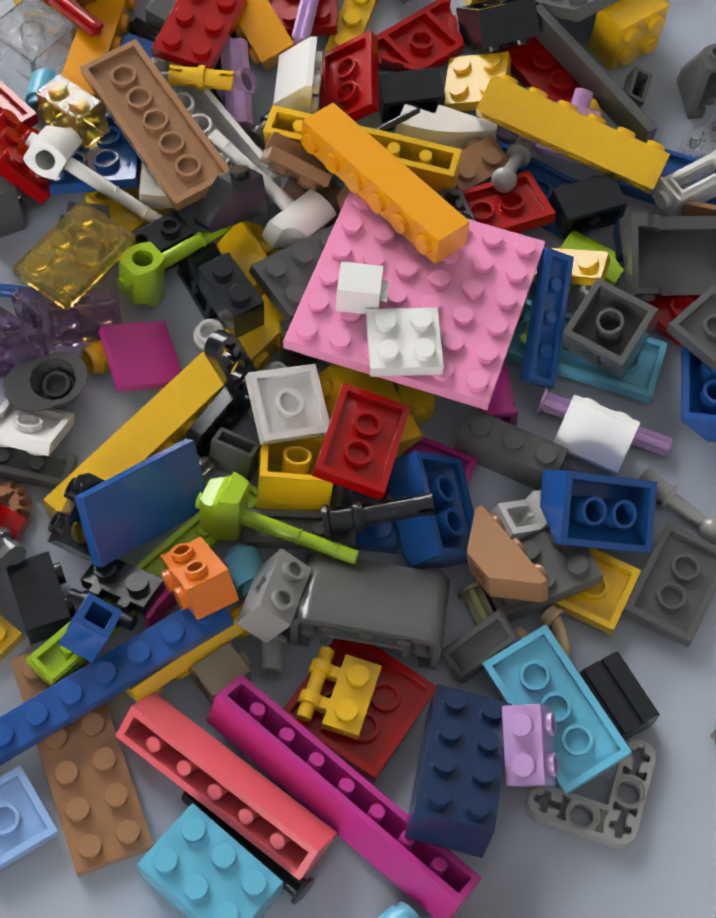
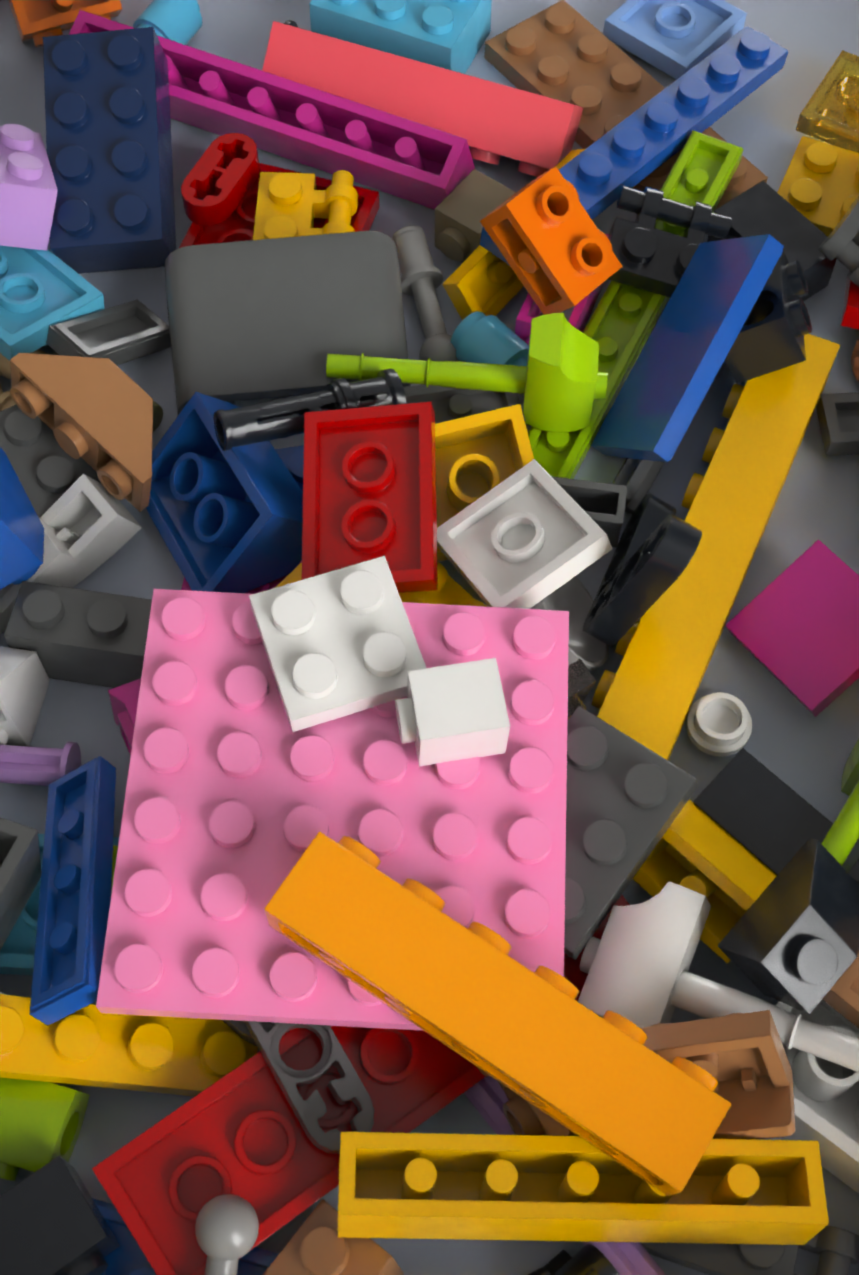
camera: 170 degrees right, 0 degrees up
(90, 627) = (674, 158): blue brick -> none
(231, 295) = (708, 730): black brick -> none
(274, 596) = (434, 277): light grey brick -> none
(379, 738) = (212, 175): none -> red beam

